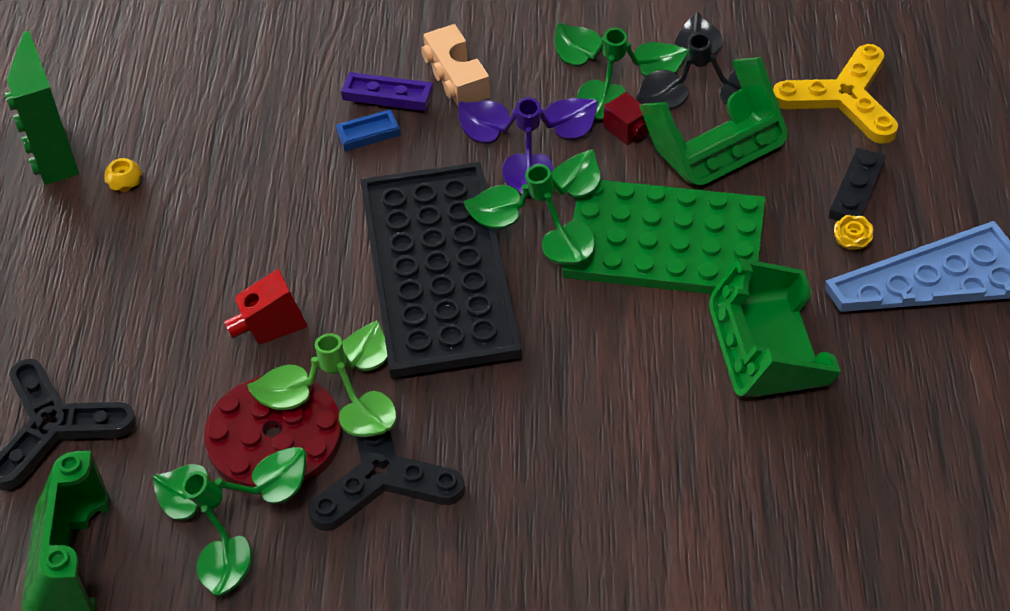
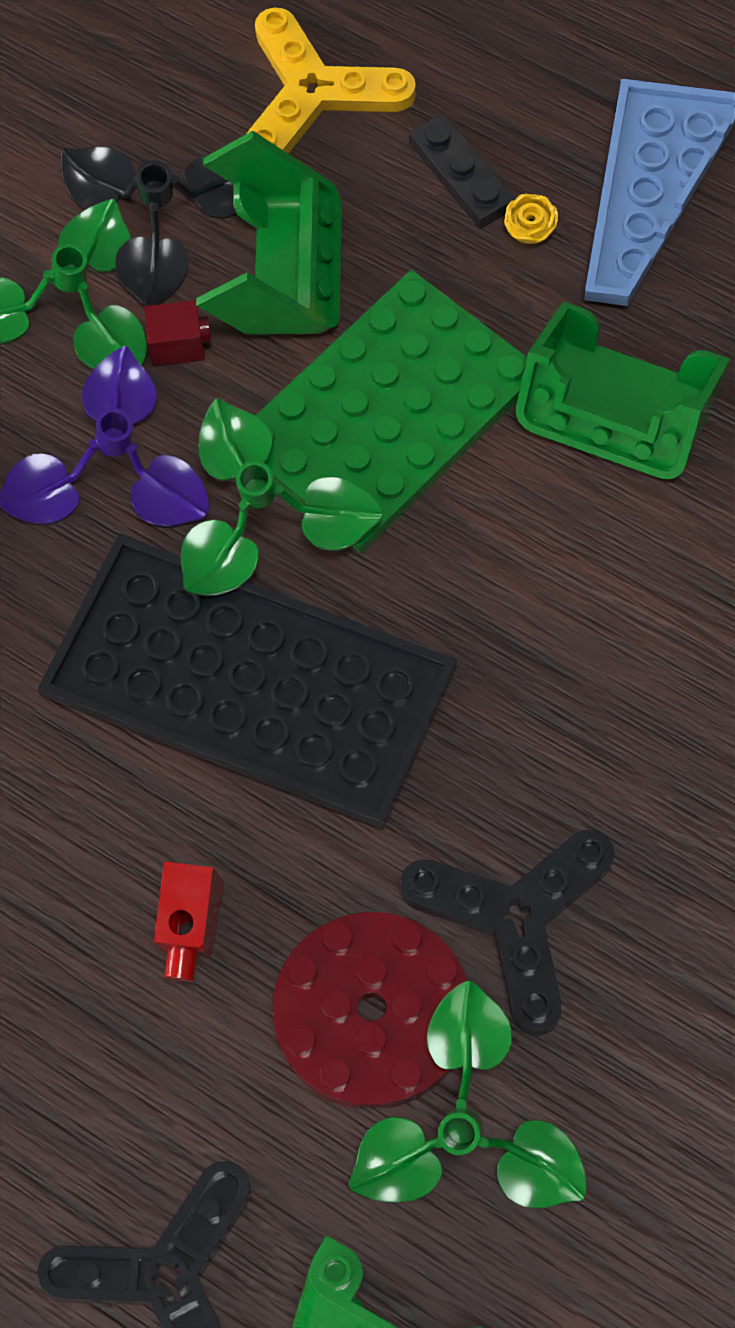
camera: 55 degrees left, 15 degrees up
(364, 349) = (332, 958): bright green plant -> none

